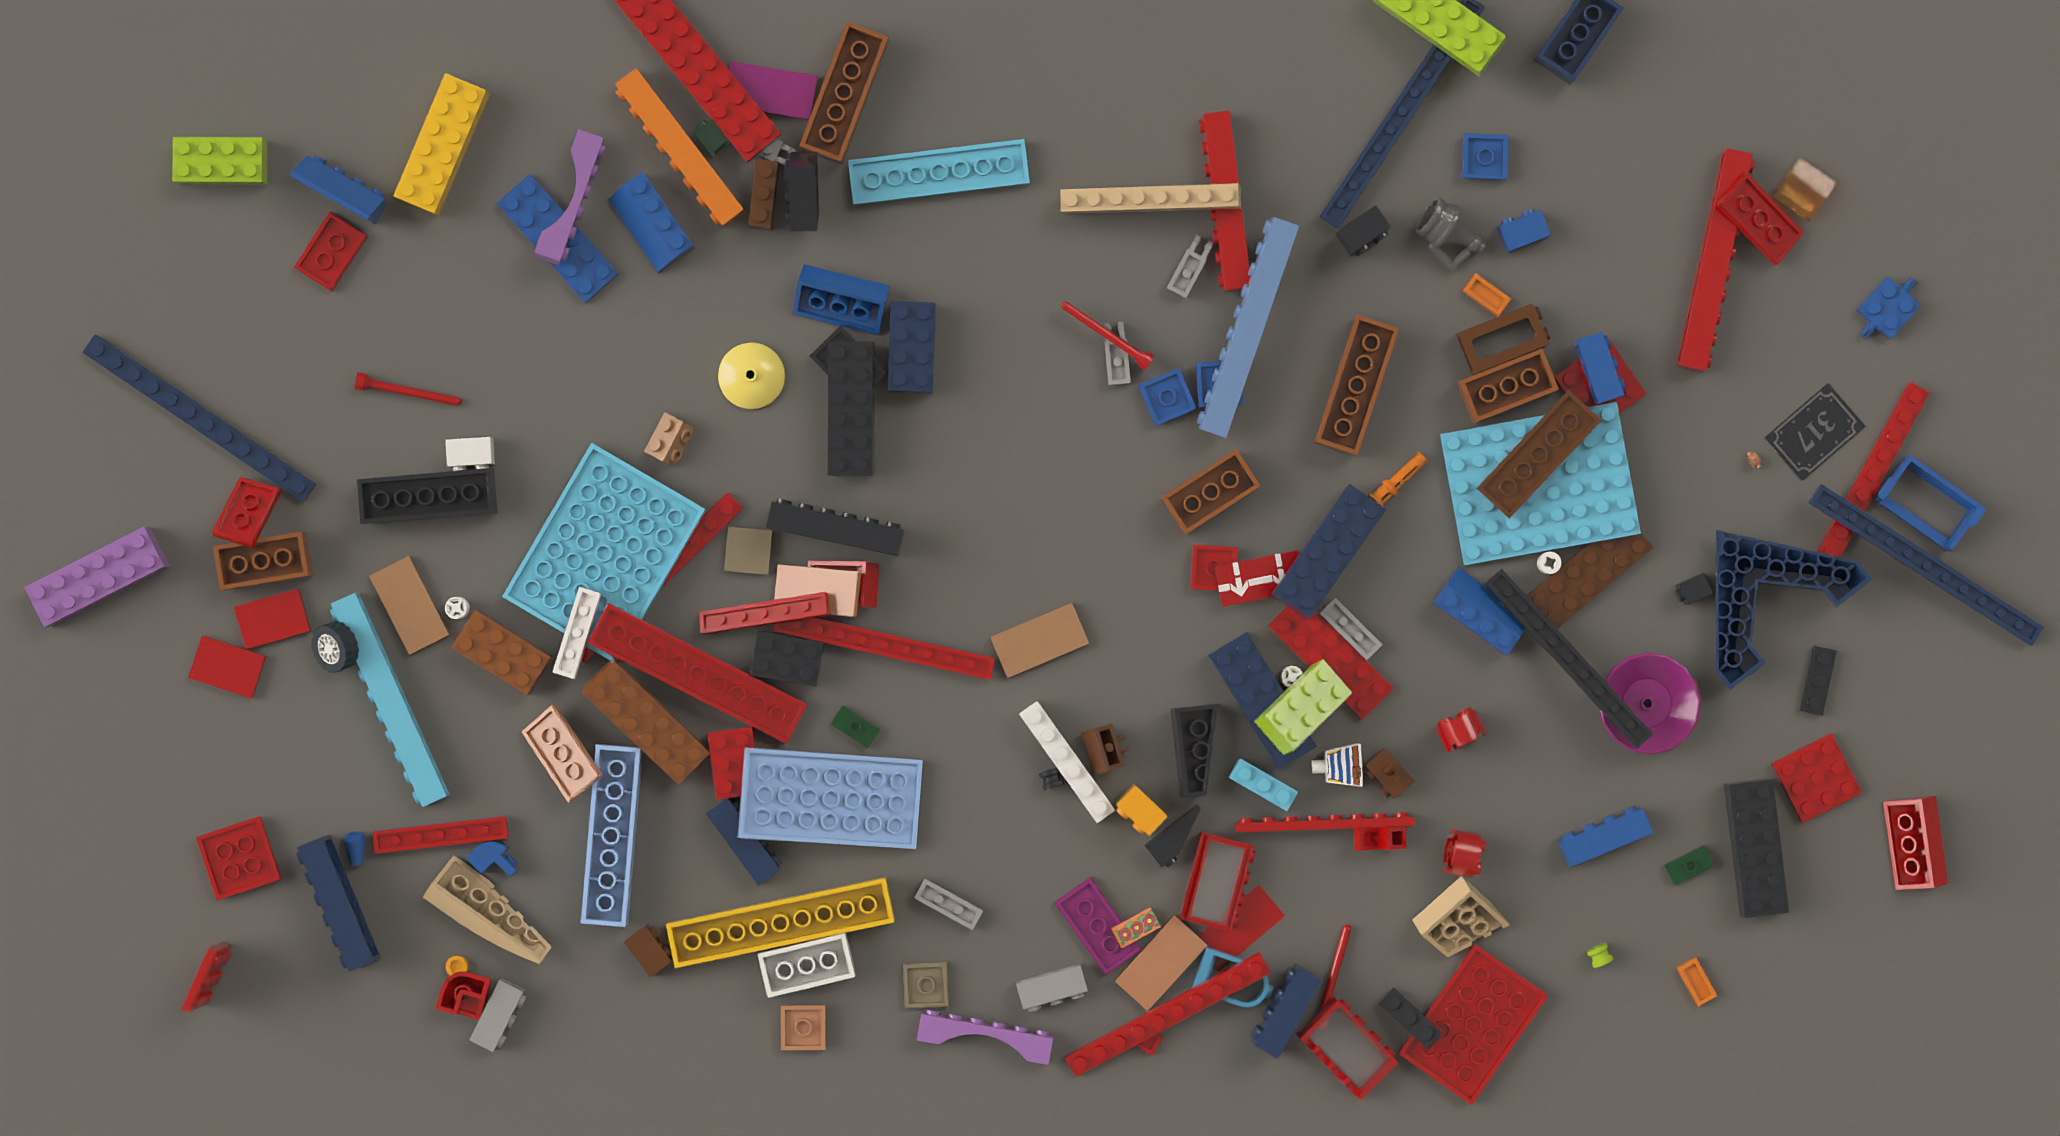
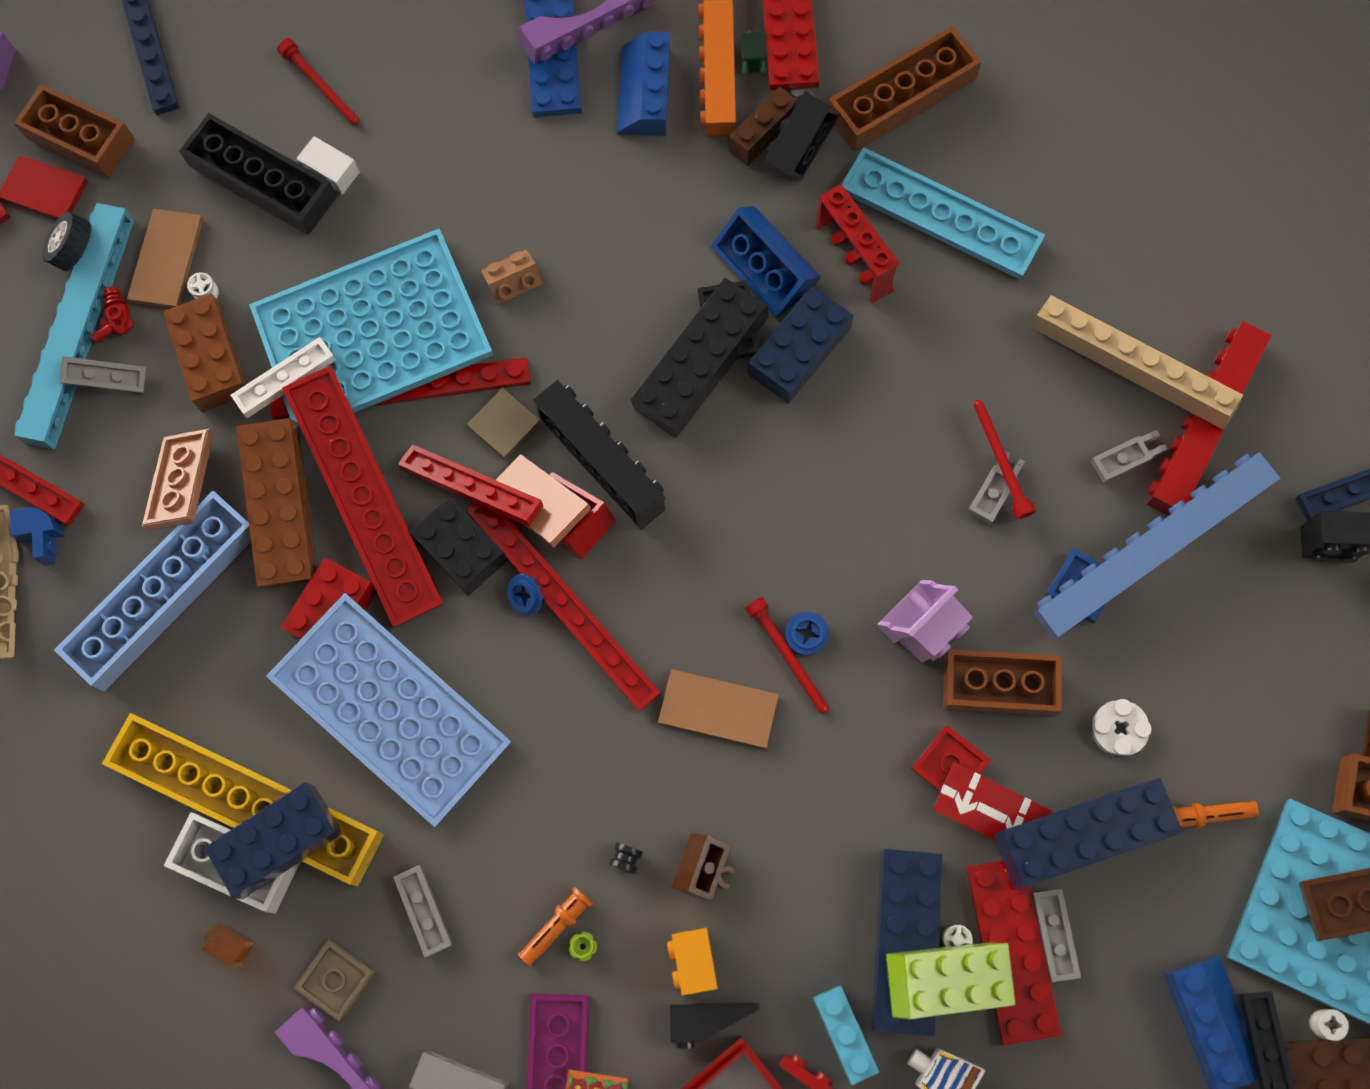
camera: 45 degrees right, 15 degrees down
(246, 512) = (96, 81): red tile -> none
(414, 673) = (116, 314): none -> red piece
(445, 721) = (102, 375): none -> light grey plate
(649, 950) = (97, 728): reddish brown brick -> none
(749, 851) = (273, 709): dark blue brick -> none
(753, 392) = (635, 286): light yellow dish -> none
(777, 90) = (841, 52): magenta tile -> none
(803, 1027) = (178, 927): nougat plate -> none
(828, 931) = (273, 841): none -> dark blue brick
(842, 1014) = (227, 945): none -> clear orange brick
(855, 726) = (472, 661): dark green plate -> none
(856, 665) = (520, 602): none -> blue gear
(899, 244) = (840, 207): none -> red window
(1020, 556) = (759, 611): none -> red piece
(1039, 841) = (565, 916): none -> orange pin
(1066, 539) = (818, 628): none -> blue gear
(1067, 761) = (654, 852): white arch -> none
(1069, 855) = (583, 954): none -> lime plate
(1133, 485) = (927, 620): none -> lavender piece
(1167, 397) = (1020, 562): blue plate -> none
(1193, 742) = (800, 933): black wedge -> none
(1312, 474) = (1124, 712): none -> white plate
(1356, 385) = (1231, 684): dark orange brick -> none

